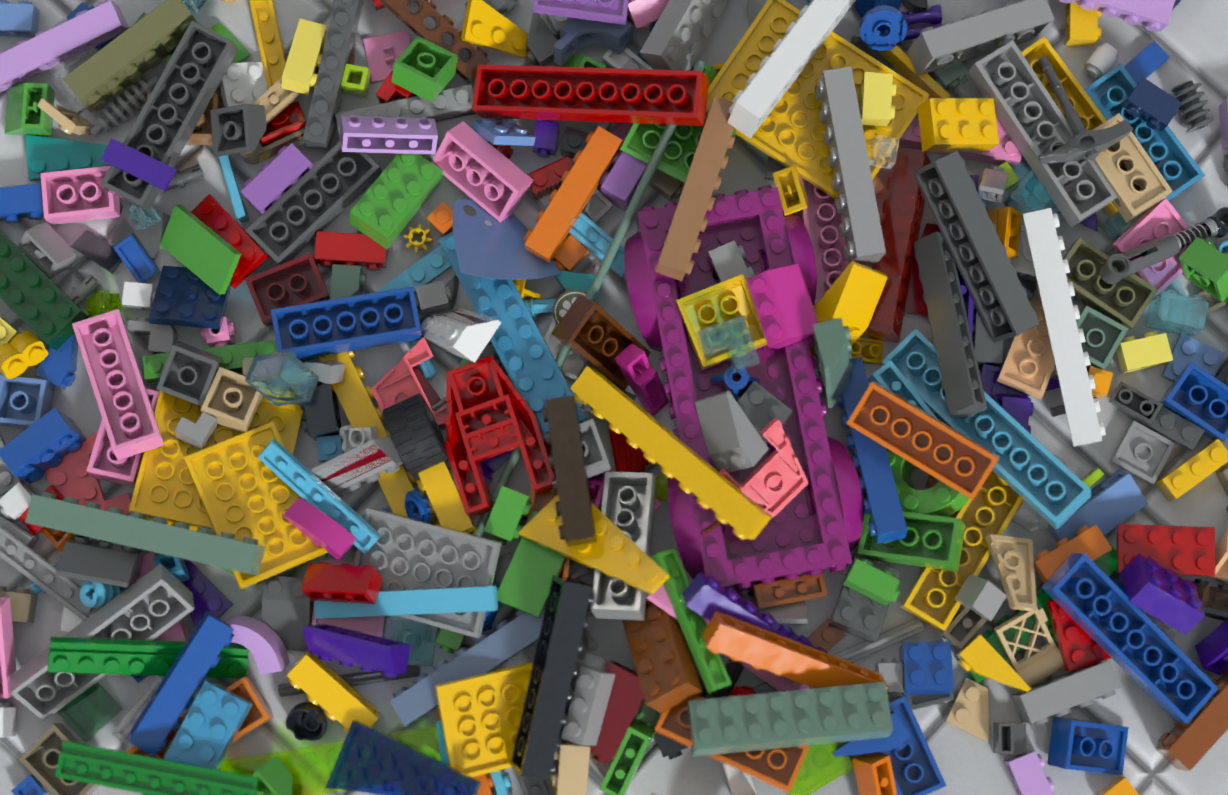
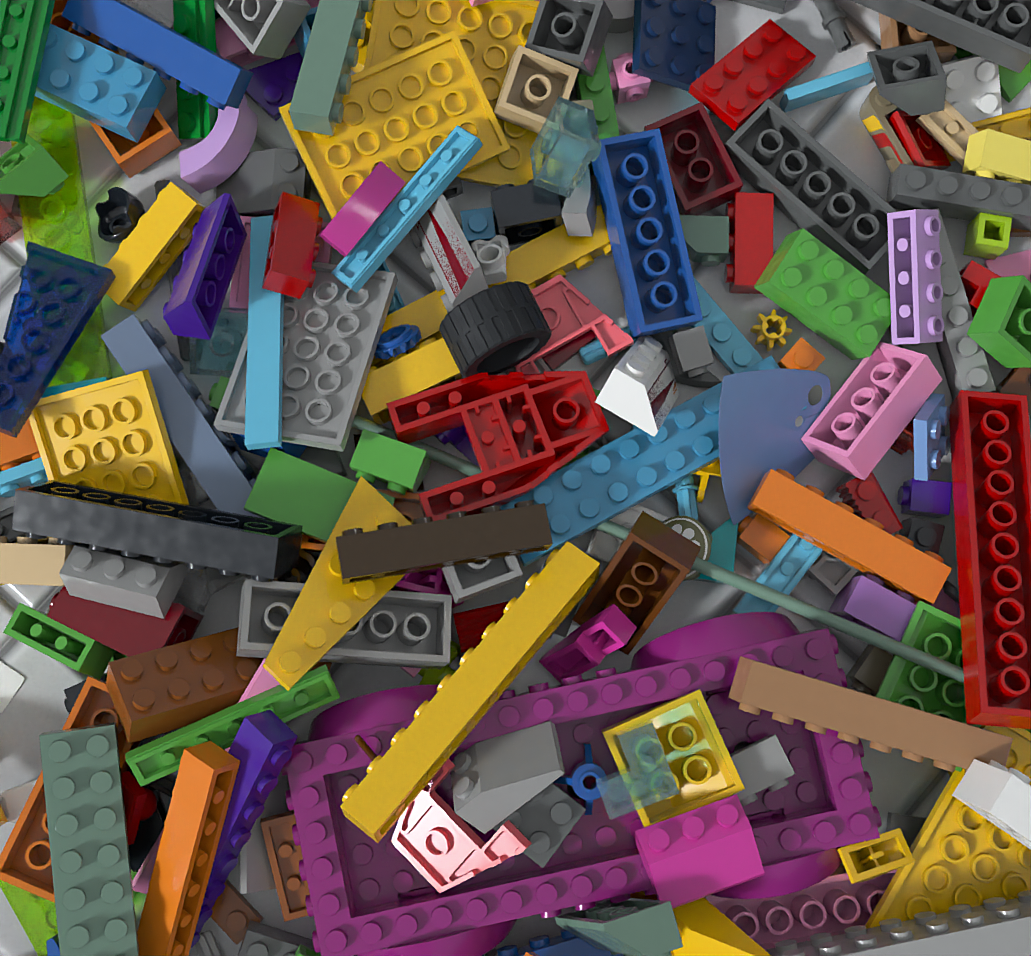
camera: 90 degrees right, 0 degrees up
(196, 434) = (488, 50): light grey piece -> none
(200, 249) = (739, 43): bright green tile -> none
(276, 178) = (843, 133): medium lavender brick -> none

